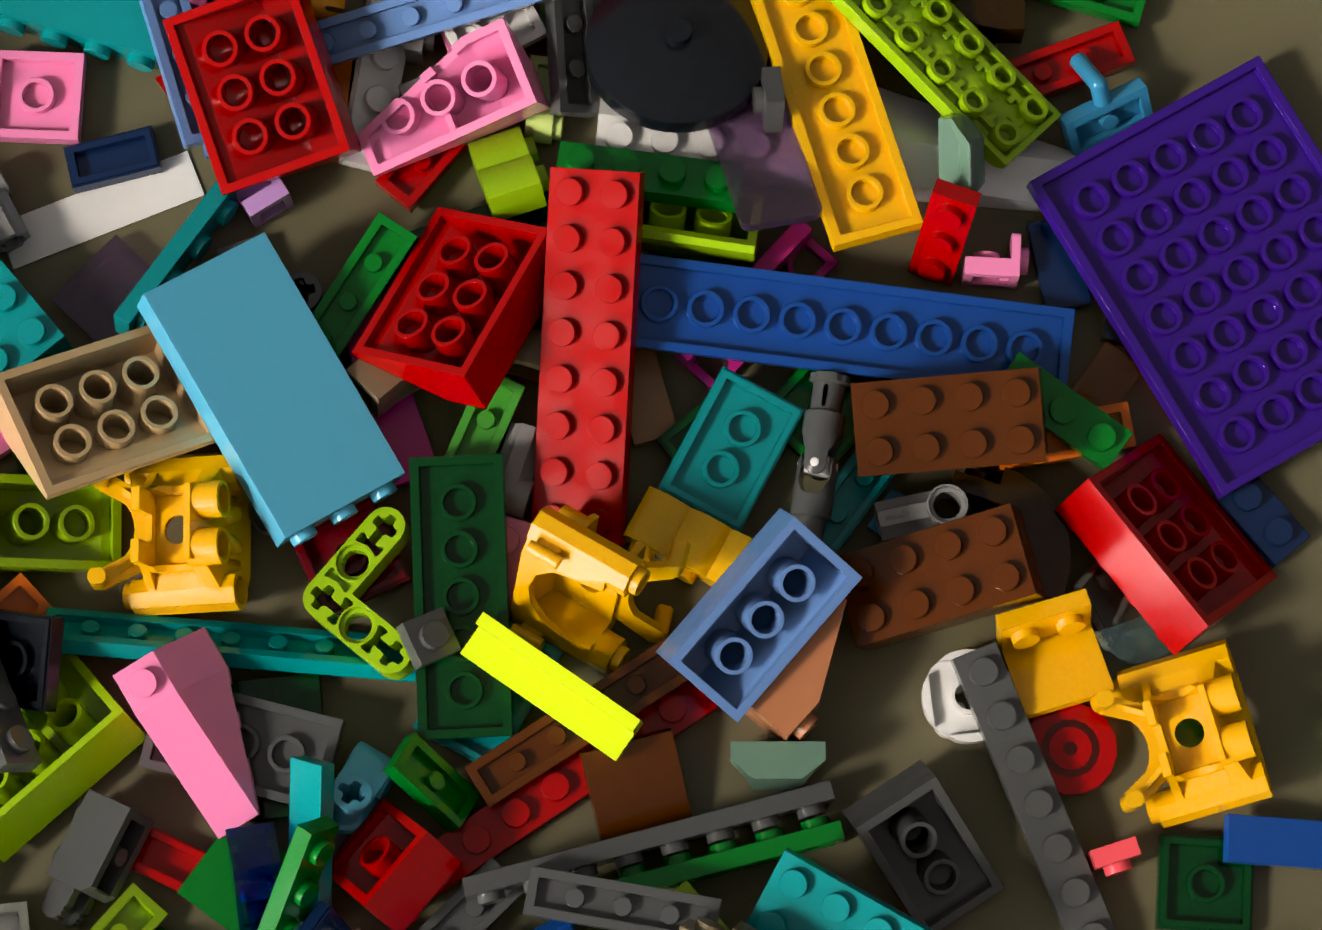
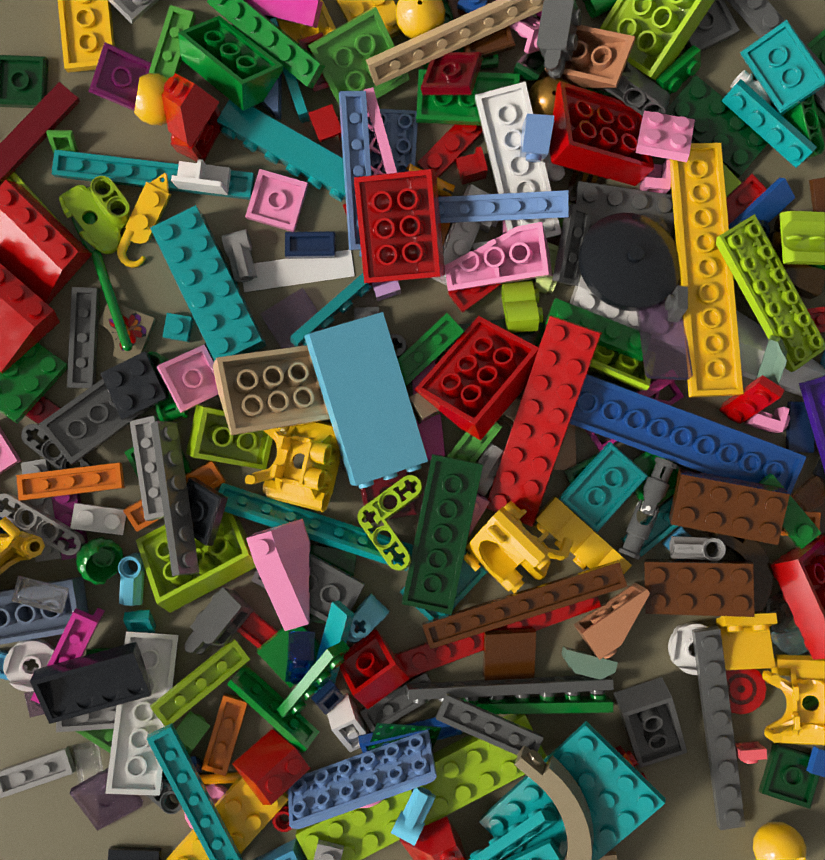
camera: 15 degrees right, 10 degrees up
(428, 638) = (420, 556): dark grey plate -> none
(432, 782) = (403, 627): green plate -> none
(551, 687) = (479, 598): neon yellow fence -> none
(759, 614) = (601, 591): medium blue slope -> none

